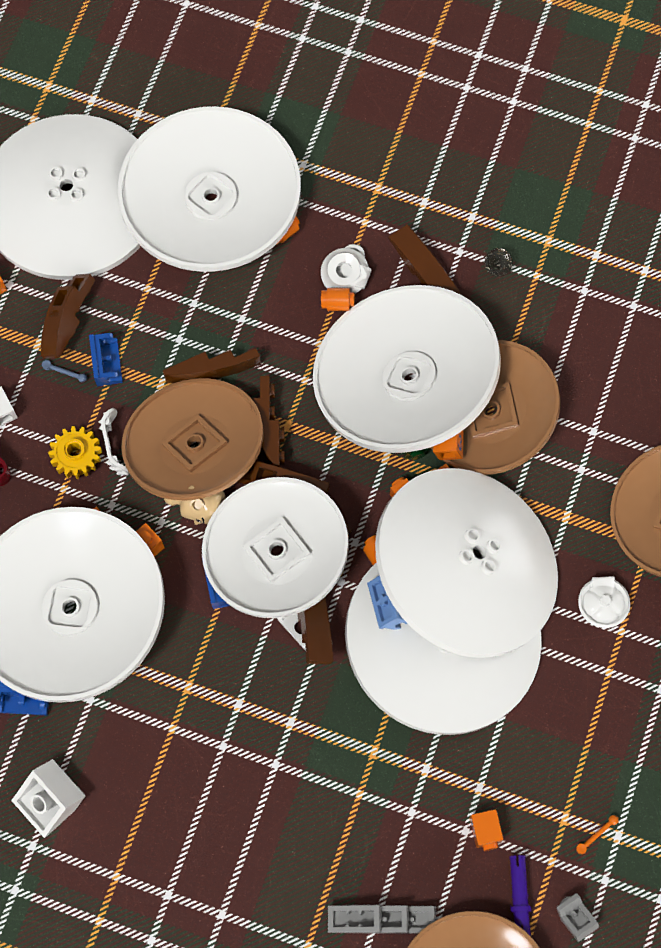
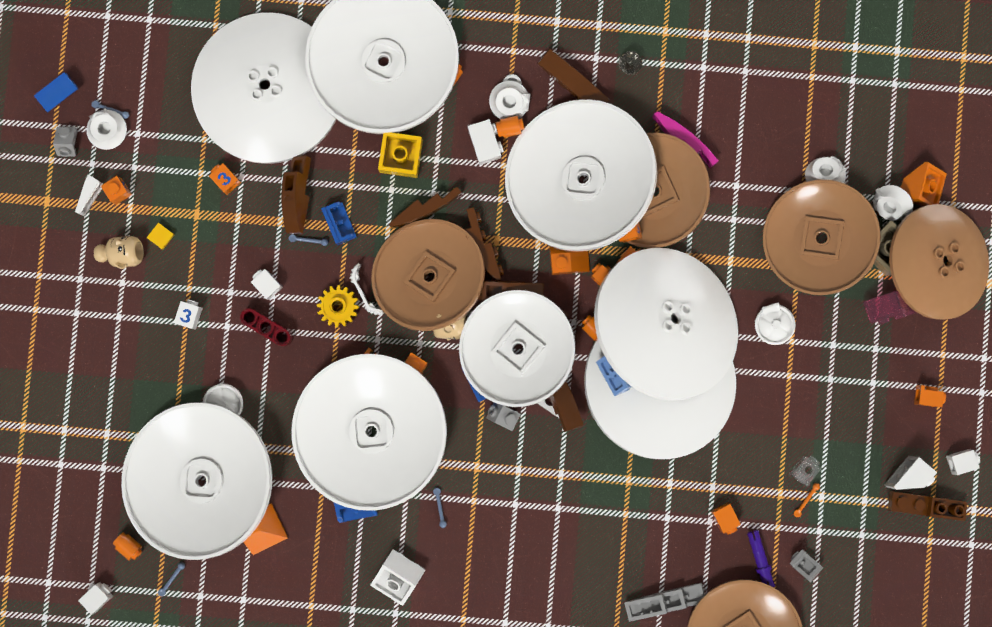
camera: 15 degrees left, 15 degrees up
(129, 705) = (443, 523): none -> sand blue hinge
(200, 299) = (400, 154): none -> yellow brick
(237, 631) = (503, 416): none -> light grey bracket
(303, 309) = (484, 141): none -> white brick
(368, 466) = (568, 261): none -> orange slope
(527, 338) = (673, 128): none -> dark pink slope
(597, 800) = (799, 473): none -> clear brick

